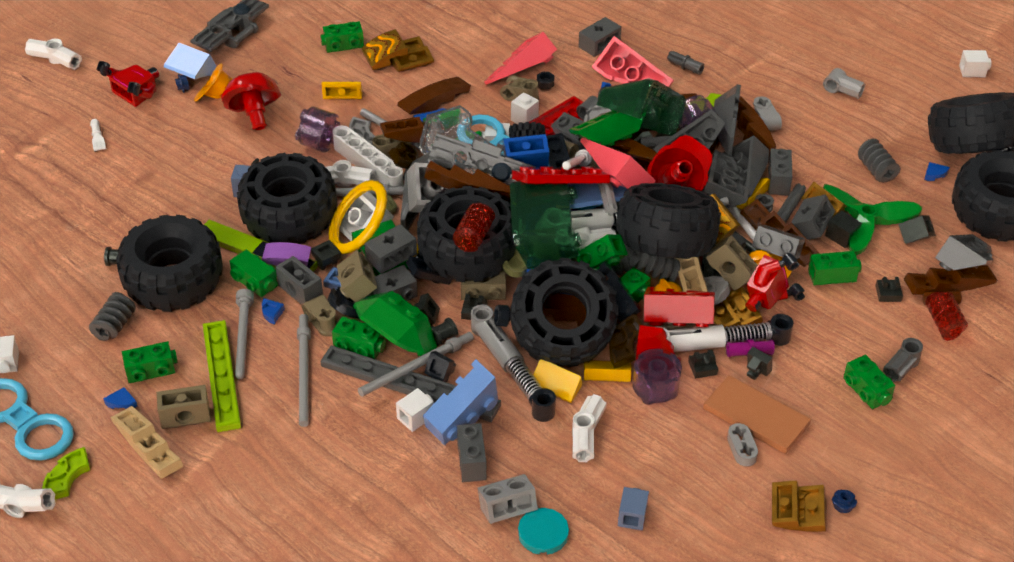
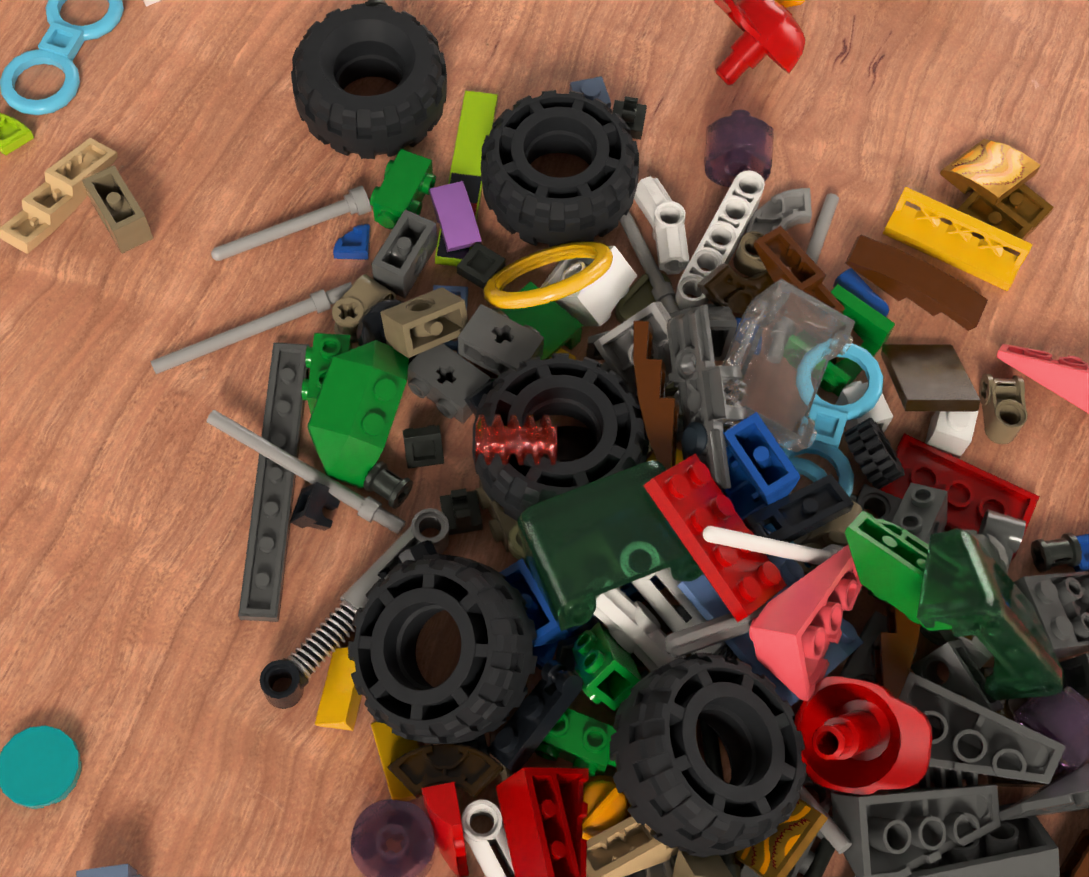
camera: 65 degrees right, 20 degrees up
(112, 316) = (259, 63): dark grey piece -> none
(120, 399) = (126, 136): blue tile -> none
(149, 362) = (194, 137): green brick -> none
(221, 376) = (209, 231): lime tile -> none
(342, 36) = (987, 102): green brick -> none
(342, 90) = (861, 152): yellow slope -> none
(412, 408) = (214, 503): white brick -> none
(416, 78) = (954, 242): none -> yellow fence
(463, 404) = (225, 565): medium blue wedge -> none
(471, 452) = (148, 611): dark grey brick -> none
(498, 102) = (930, 378): none -> dark brown tile
(507, 498) = (61, 696): light grey brick -> none
(545, 80) = (1054, 437): black tile -> none
(583, 427) = (228, 767): white piece -> none

